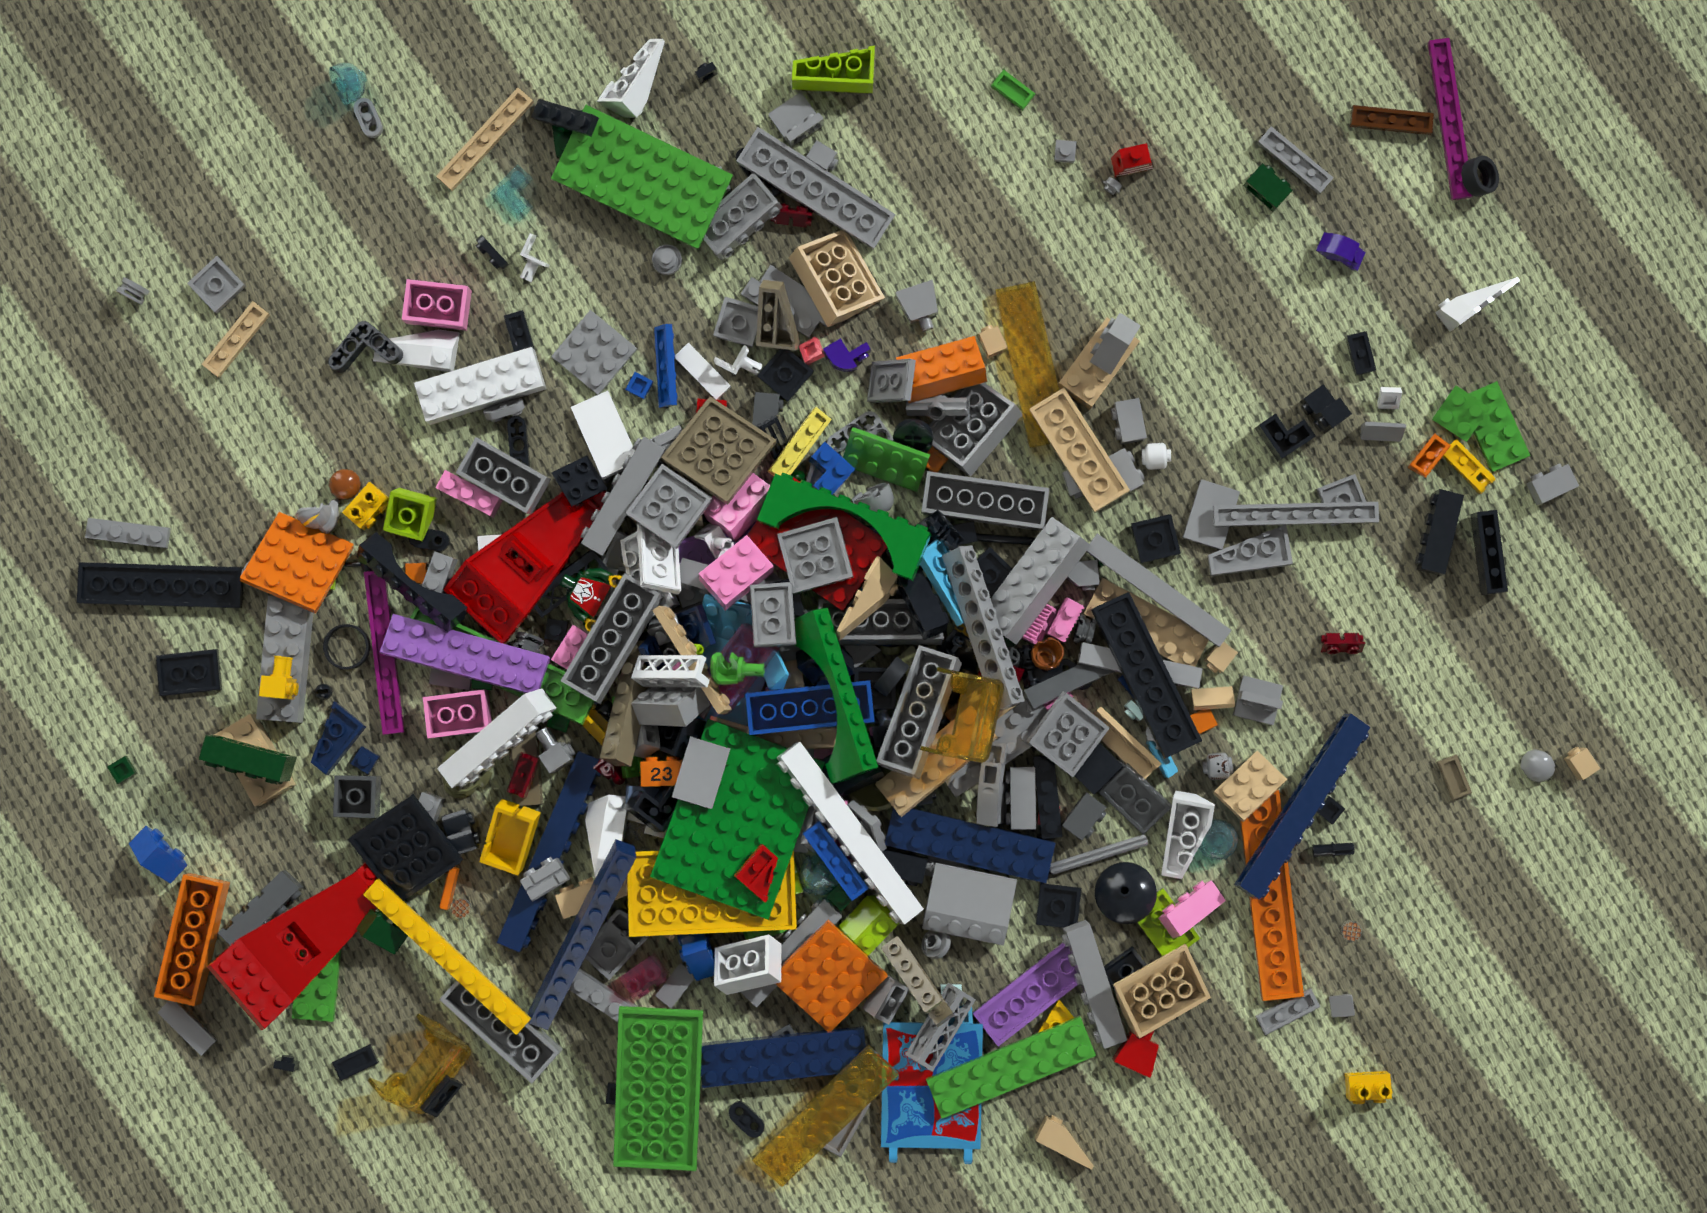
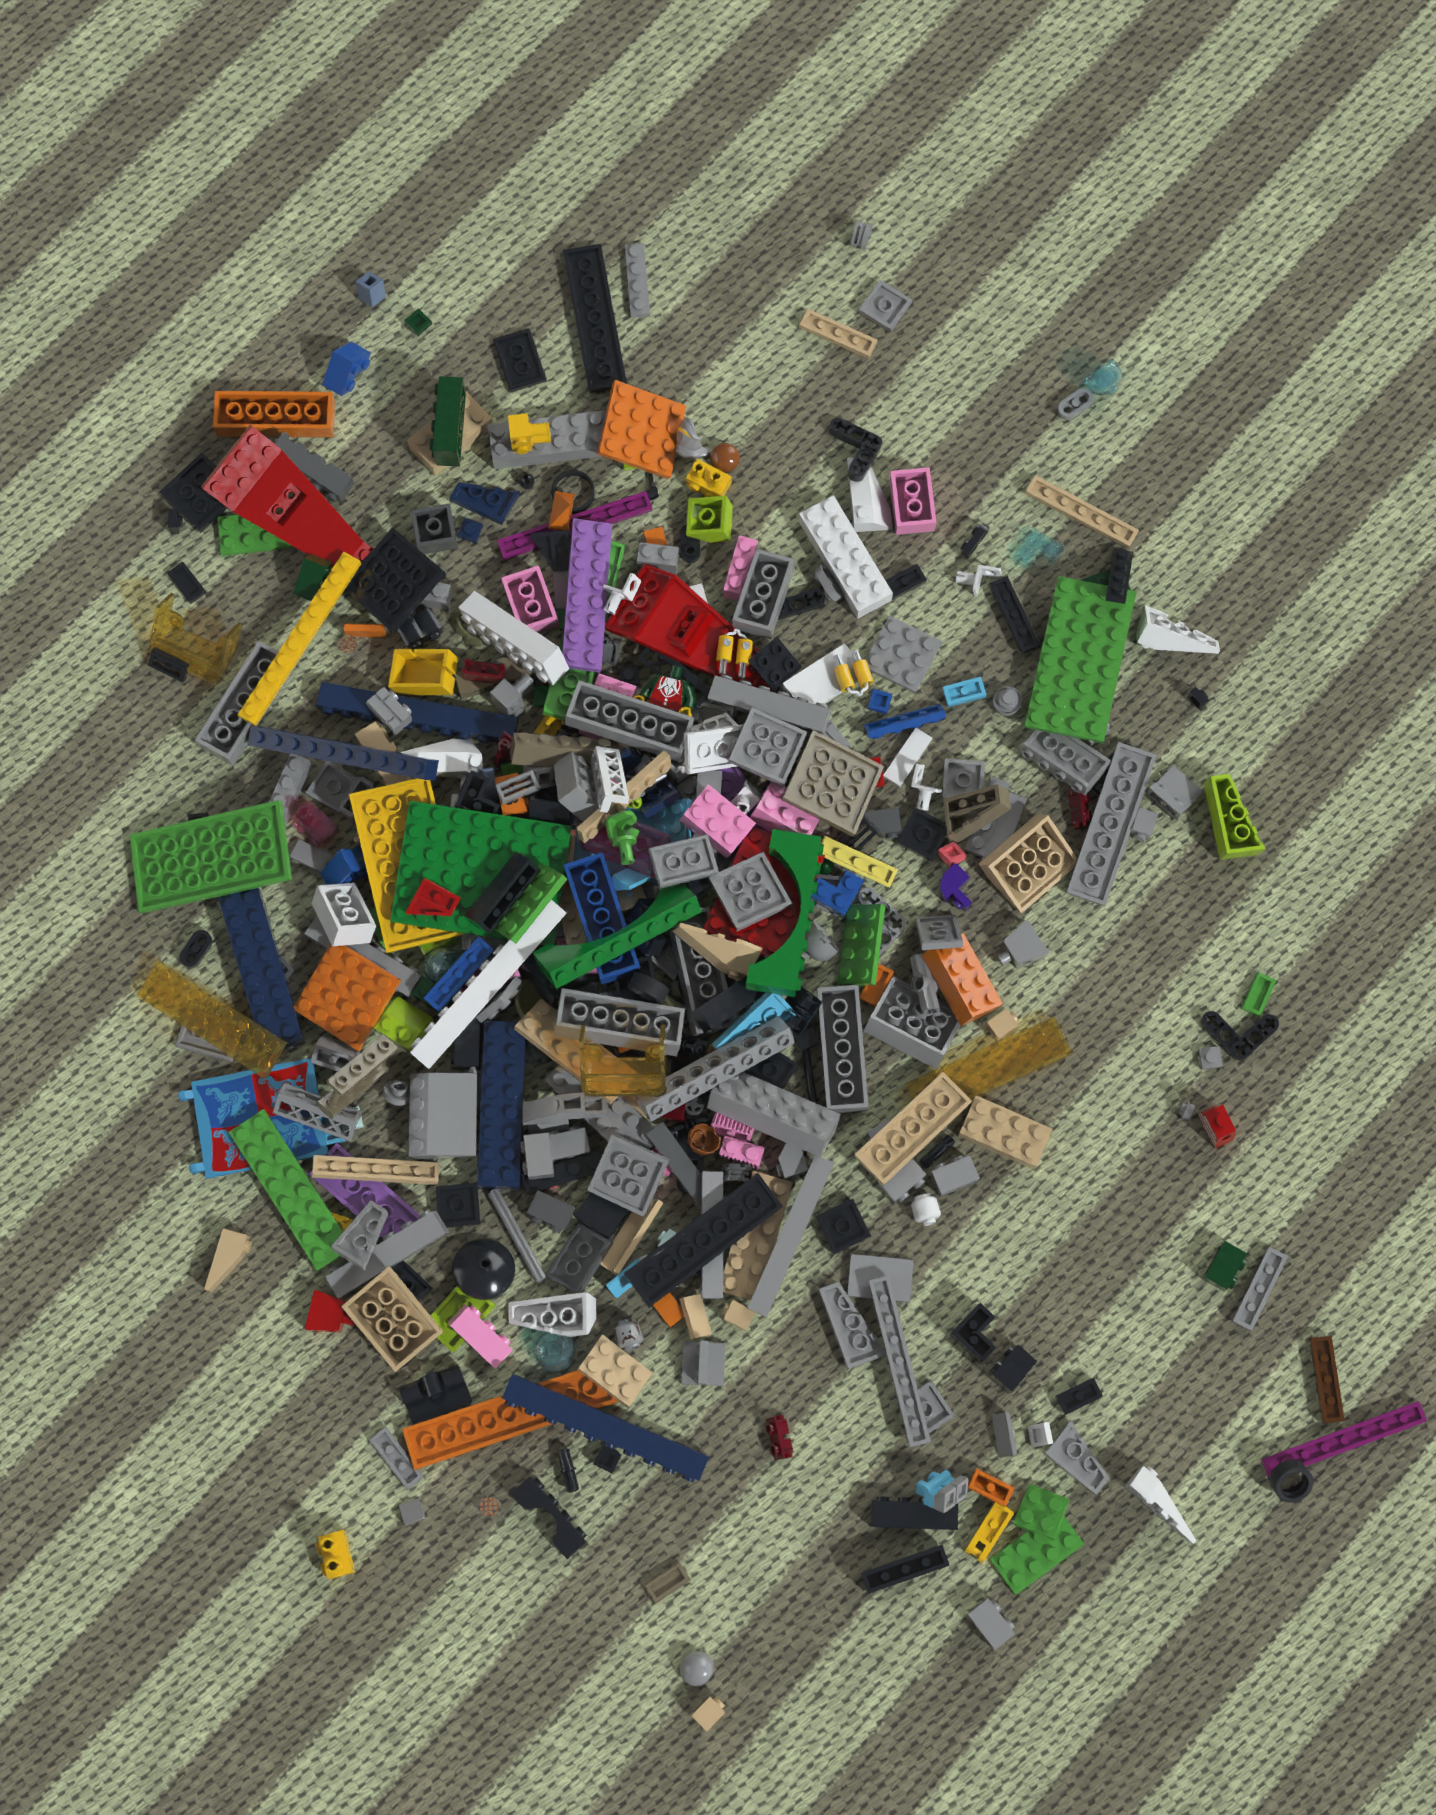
camera: 75 degrees right, 10 degrees down
(74, 812) = (370, 289): none -> sand blue brick
(187, 1026) = (193, 429): light grey tile -> none
(259, 1046) = (190, 498): none -> black plate
(366, 662) = (561, 511): none -> orange slope
(405, 677) = (554, 547): none -> black wing
(440, 607) = (665, 497): black arch -> none
(473, 625) = (617, 594): none -> white bracket
(556, 527) = (724, 652): none -> yellow piece
(578, 232) = (1014, 615): none -> black plate
(606, 396) = (844, 676): none -> yellow piece
(647, 300) = (964, 692): none -> medium azure plate
(664, 763) = (504, 800): none -> light grey tile
(700, 772) = (517, 827): light grey tile -> none
(766, 801) = (502, 892): none -> black brick
(782, 777) = (530, 903): none -> bright green plate
(914, 434) = (891, 966): black tile -> none
(1009, 980) = (375, 1170): none -> tan plate
(1032, 818) = (538, 1156): none -> light grey brick
(1053, 123) = (1236, 1040): none -> black beam
(1073, 1006) = (361, 1235): none -> light grey wing
(1101, 432) = (937, 1151): none -> black axle
(1115, 341) = (1026, 1136): light grey brick -> none
(1236, 962) = (435, 1394): none -> black panel
(1341, 249) = (1179, 1354): dark purple brick -> none
(1351, 888) = (568, 1538): none -> black arch
(1418, 369) = (1075, 1458): none -> light grey wing
(1426, 499) = (942, 1490): none -> hips

